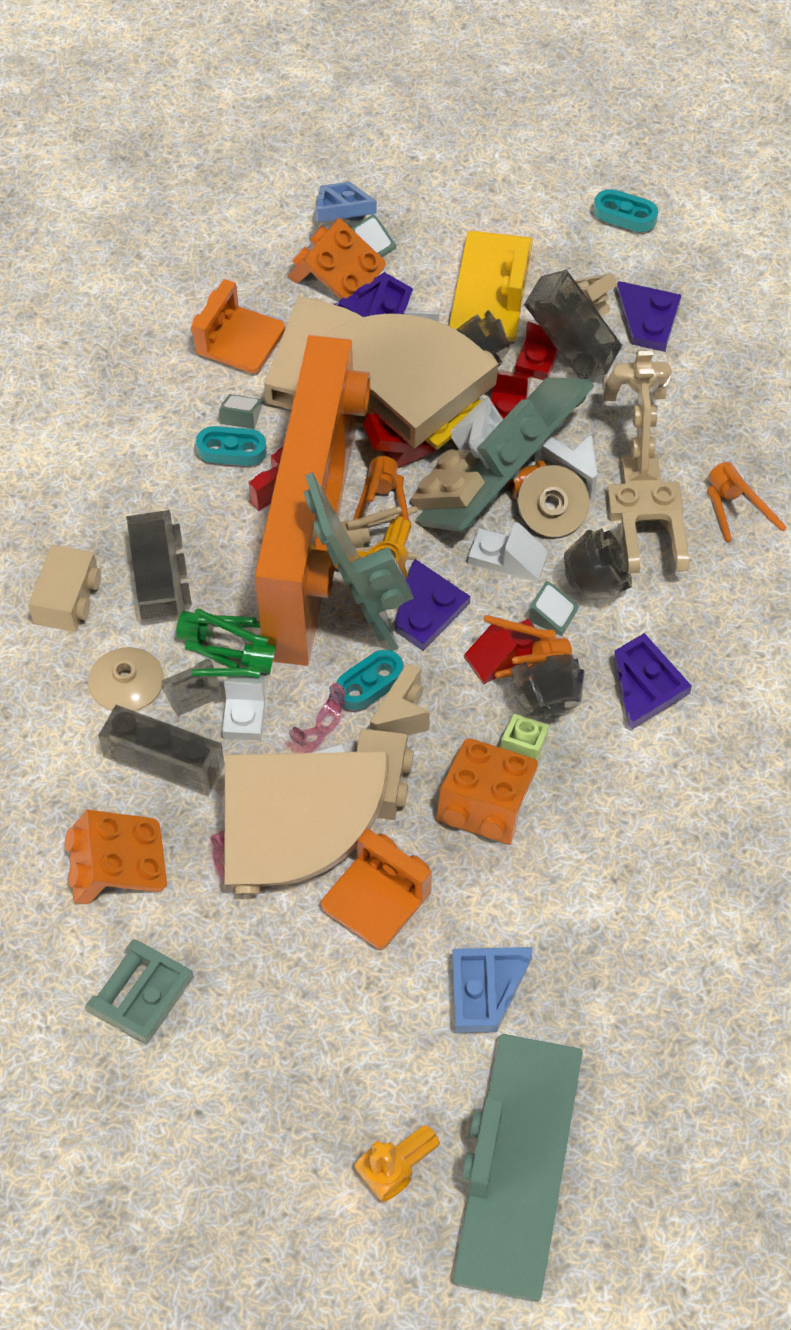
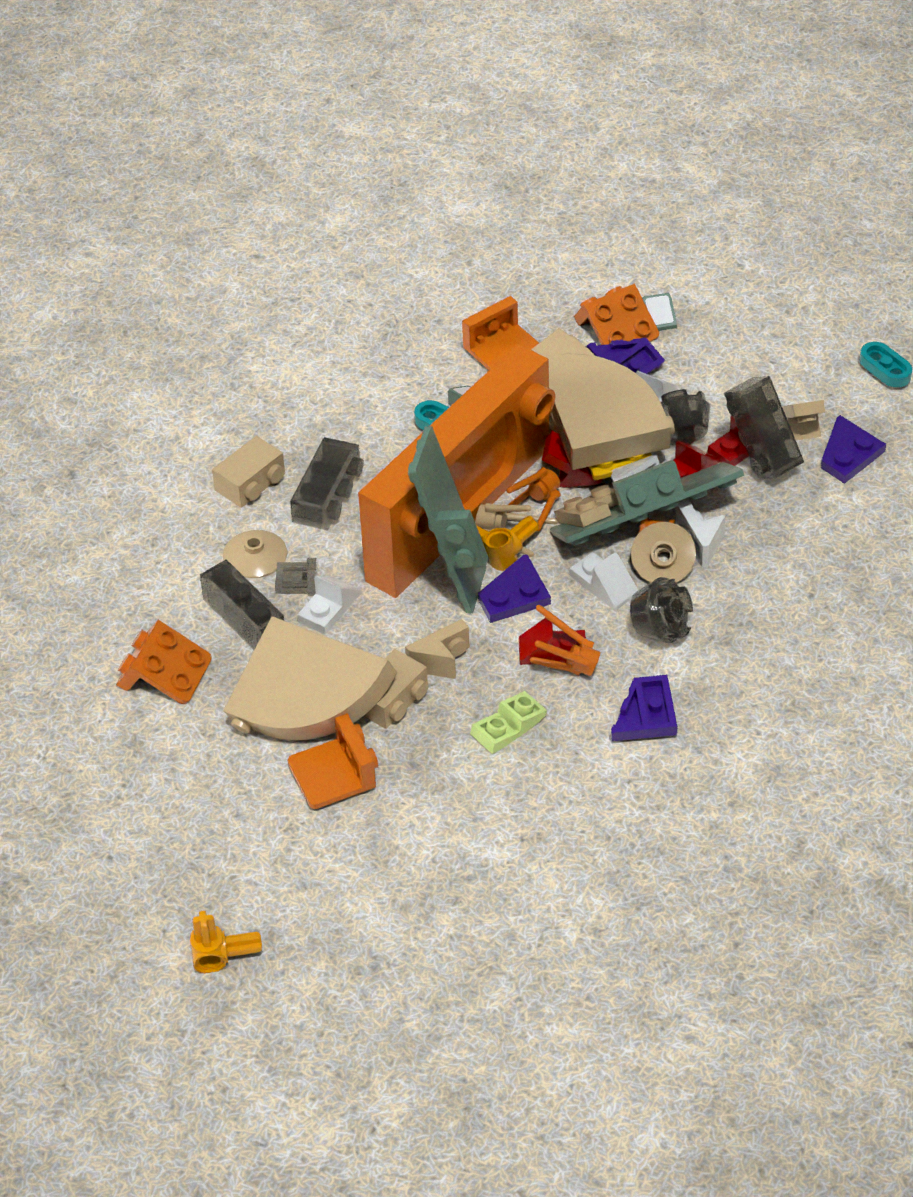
camera: 30 degrees right, 10 degrees down
(149, 998) = (122, 766): sand green plate -> none
(196, 630) = (330, 537): green plant -> none
(255, 657) = (352, 570): green plant -> none
(332, 707) = (390, 632): clear pink cap -> none
(343, 201) = (648, 274): medium blue wing -> none
(365, 678) = (424, 621): teal plate -> none
(485, 790) = (459, 729): orange bracket -> none
(486, 985) = (370, 863): medium blue wing -> none
(492, 279) = (735, 365): yellow bracket -> none
(517, 1168) = (306, 988): sand green bracket -> none
(548, 686) = (560, 678): clear smoke cone -> none
(552, 609) = (609, 631): slope -> none
(643, 493) = (749, 576): tan piece -> none
(729, 484) = (820, 598): orange plant -> none

